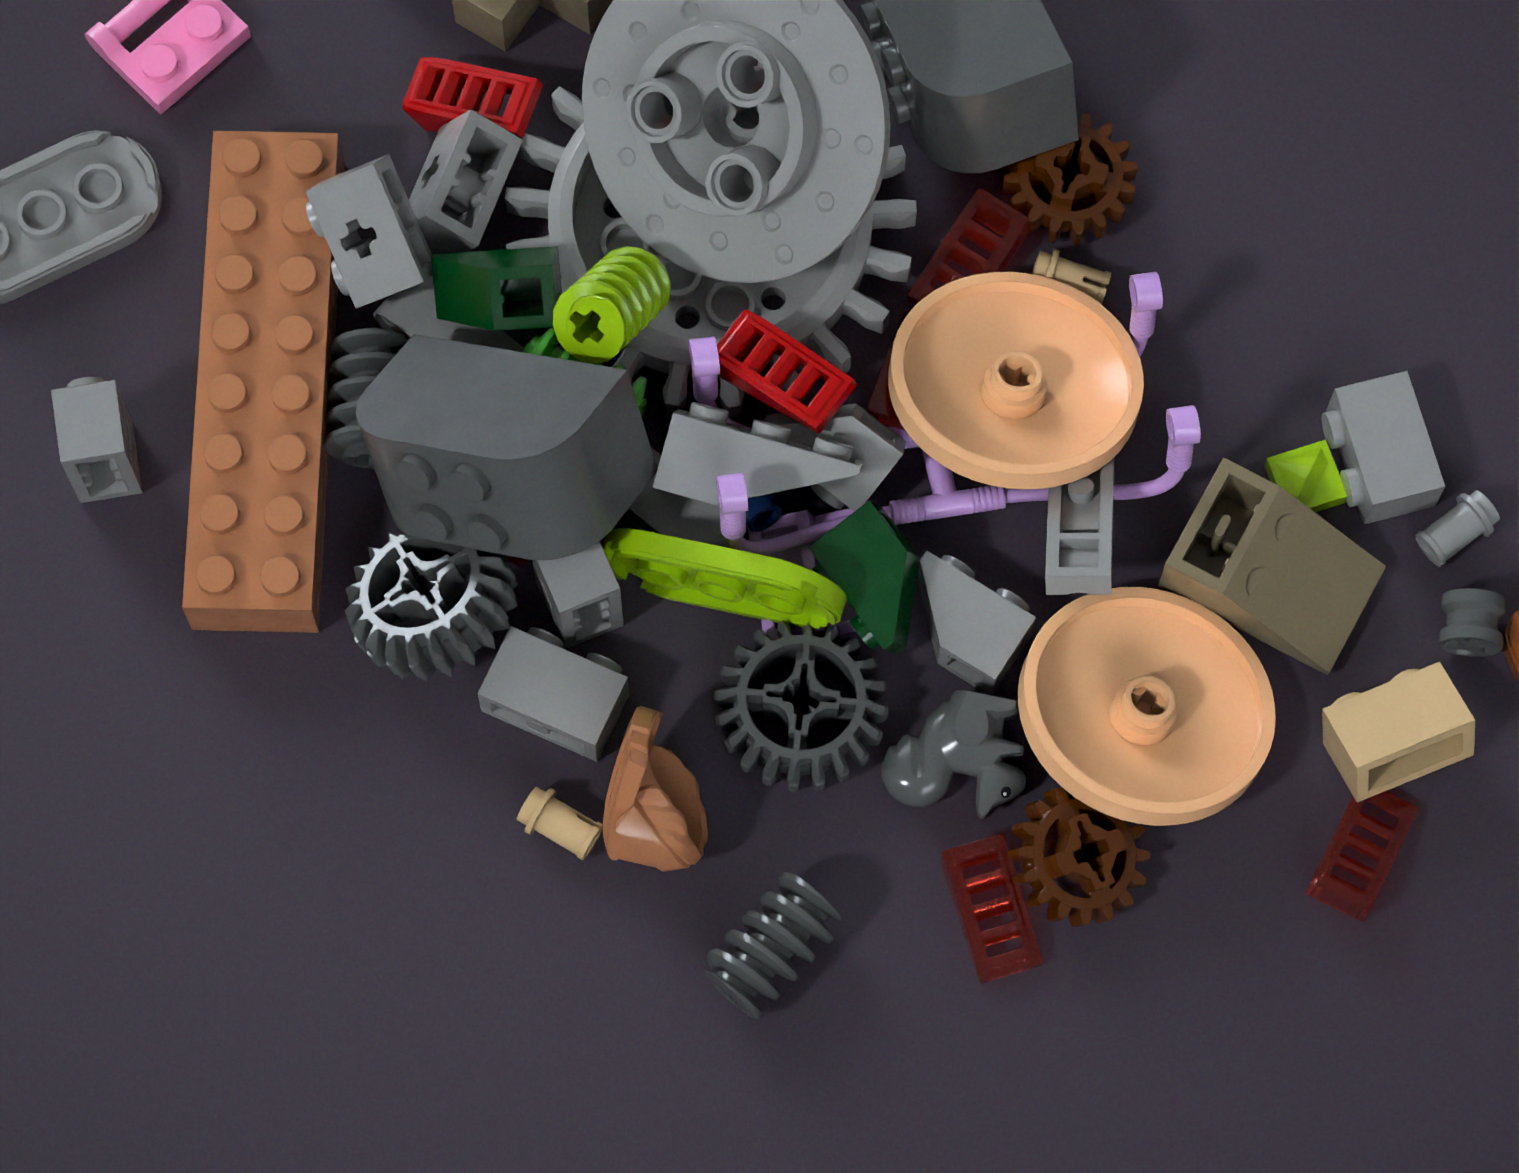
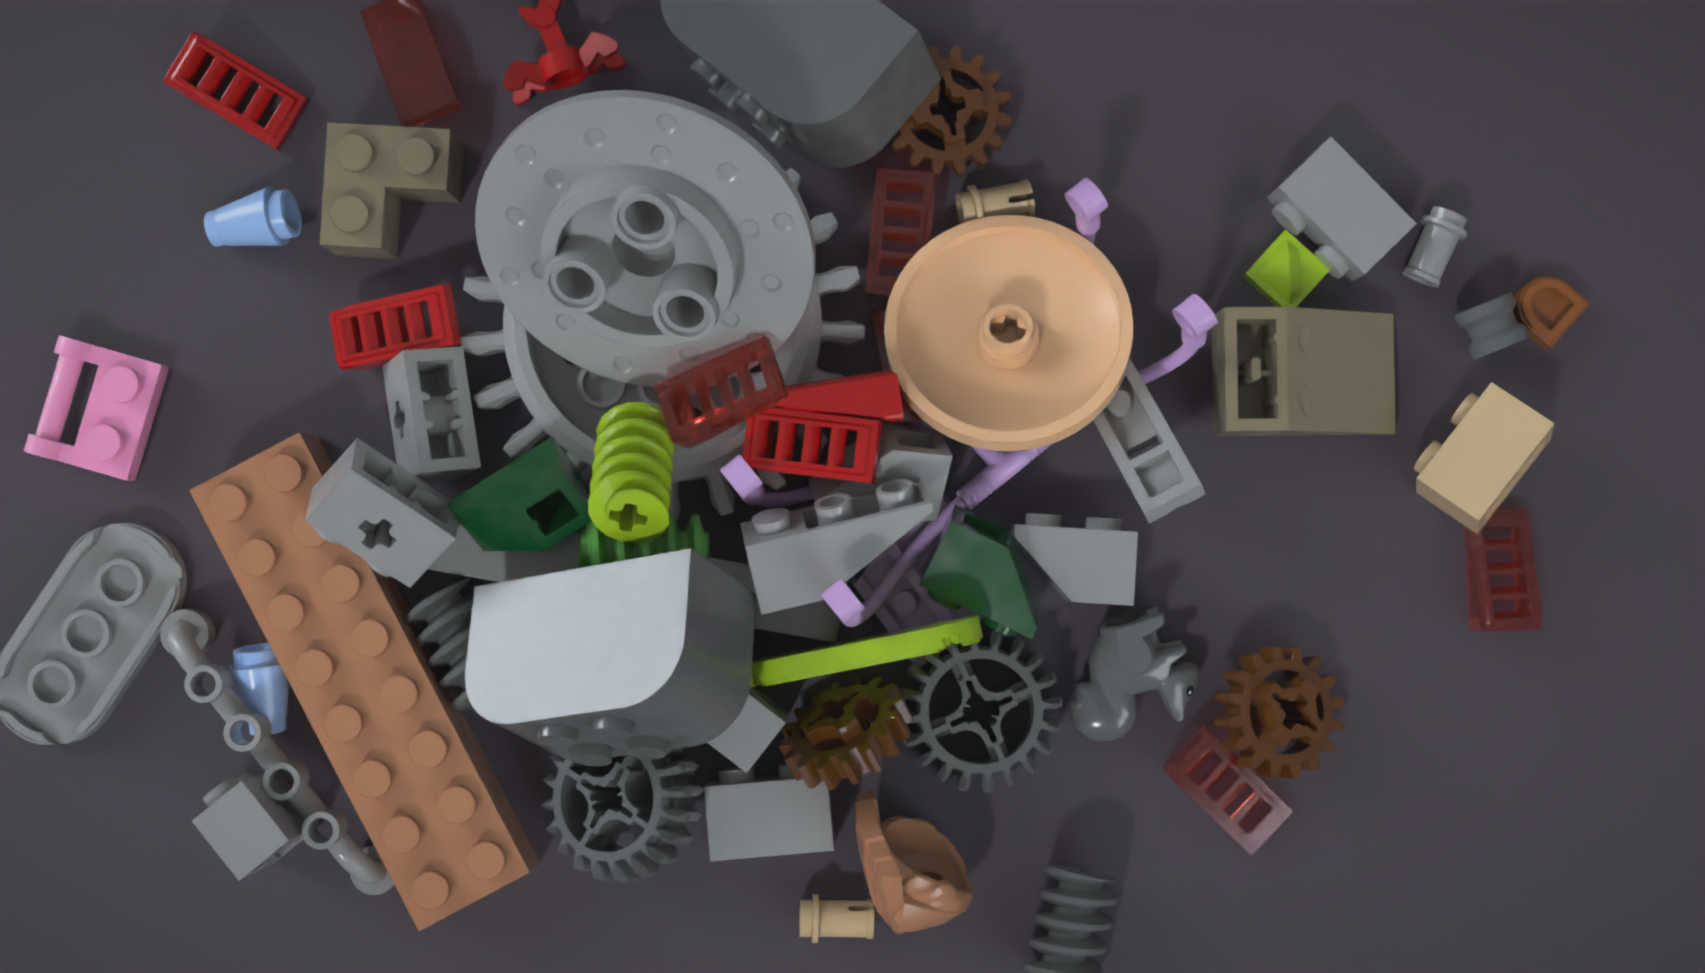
camera: 30 degrees left, 15 degrees up
(129, 269) = (187, 637): none -> light grey bar
(167, 339) = (261, 684): none -> light blue cone
(667, 646) = (845, 732): none -> reddish brown gear
(708, 266) = (676, 392): none -> clear red slope
(847, 350) = (859, 395): none -> red slope
(1146, 706) = (1274, 561): light nougat dish -> none

